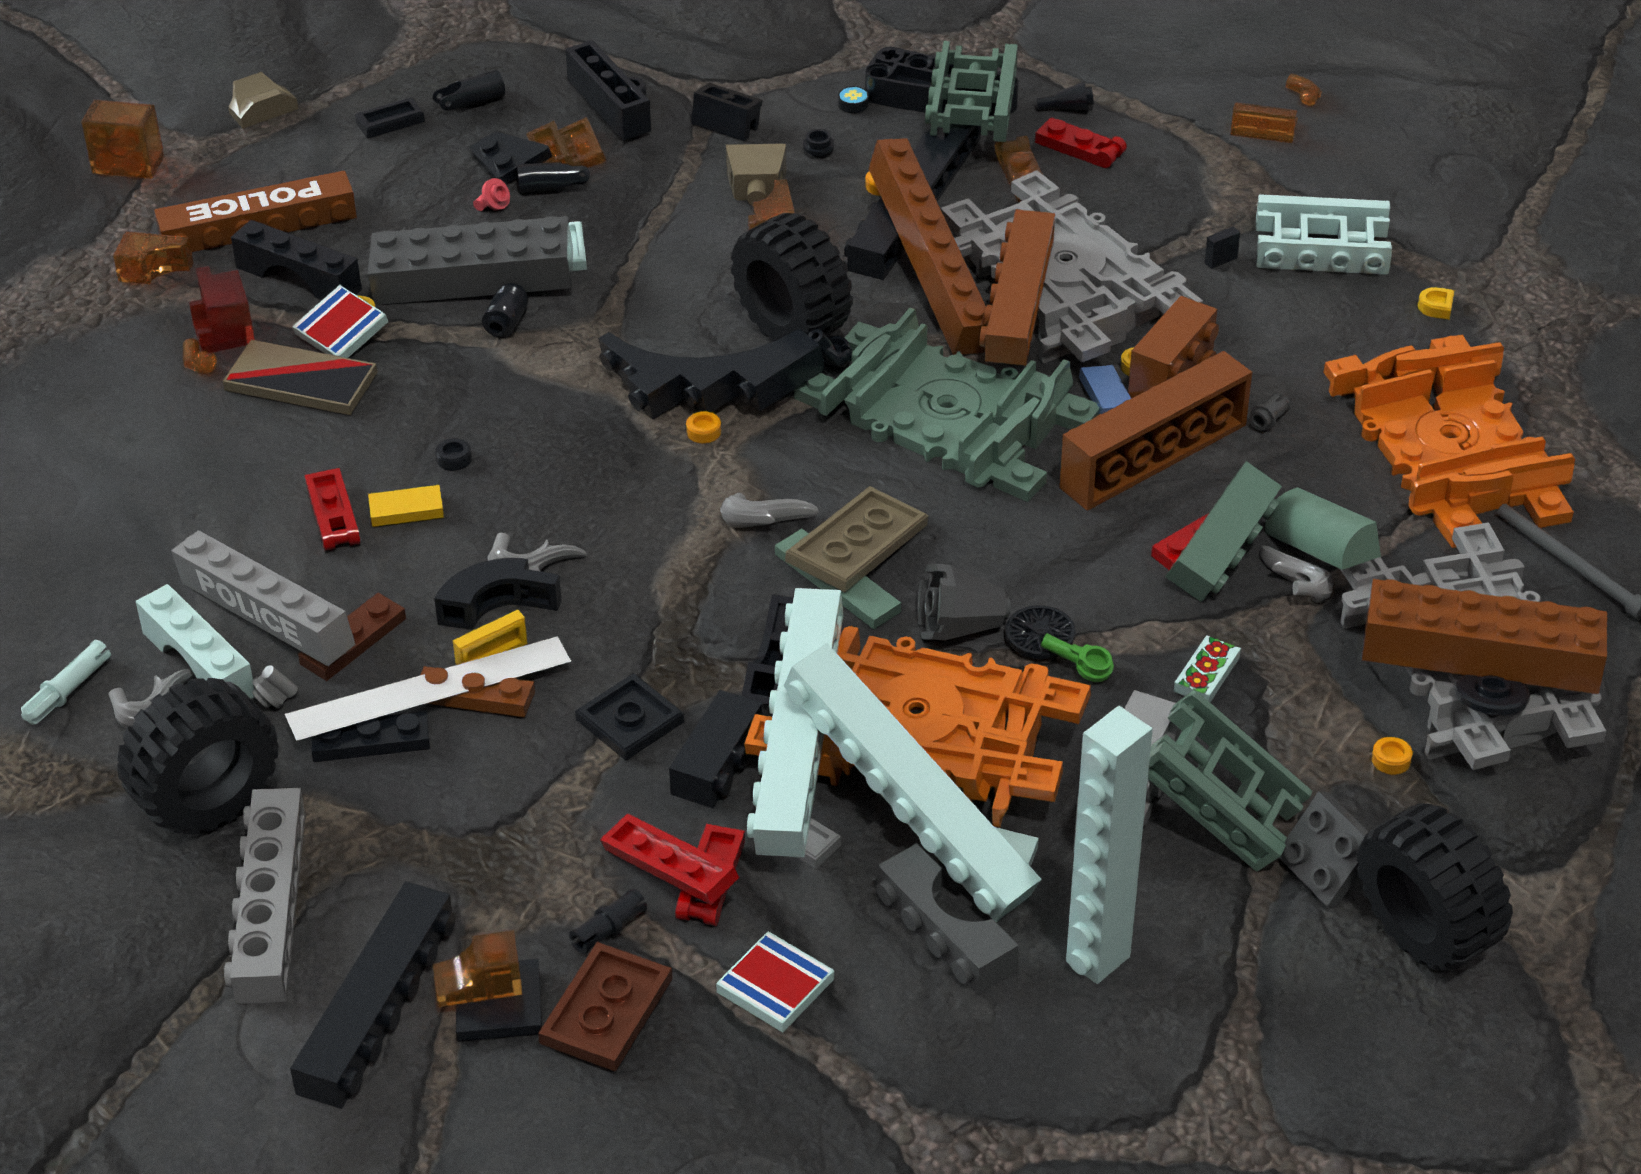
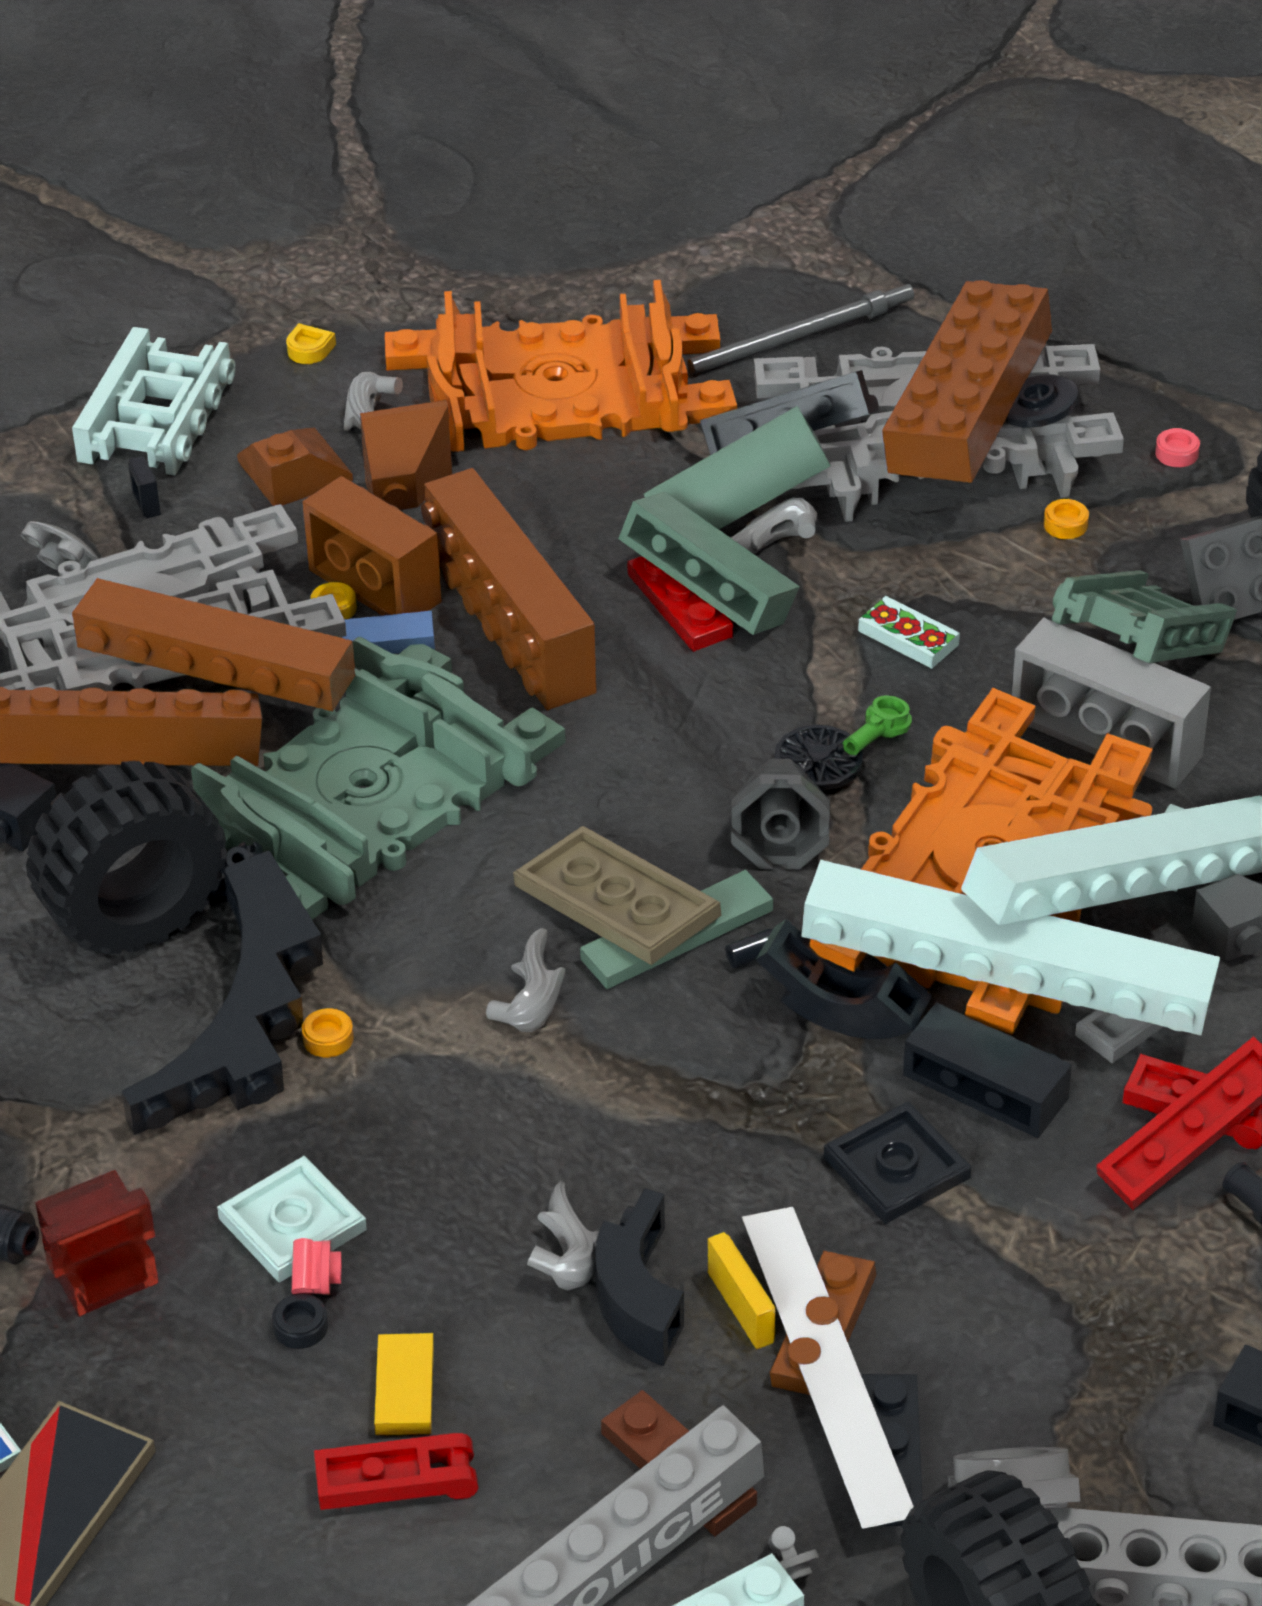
camera: 80 degrees left, 0 degrees up
(321, 779) = (1039, 1468): none -> light grey piece
(489, 449) = (315, 1267): none -> coral plate
(490, 348) = (98, 1241): none -> clear red plate
(537, 437) = (290, 1207): none -> light aqua tile
(1127, 215) = (57, 545): none -> light grey dish
(1282, 315) = (292, 465): none -> dark orange slope
(1292, 358) = (405, 451): none -> dark orange slope
(1376, 335) = (365, 393): none -> light grey piece
(1408, 546) = (820, 403): none -> hinge
(1523, 822) = (1177, 447): none -> coral tile

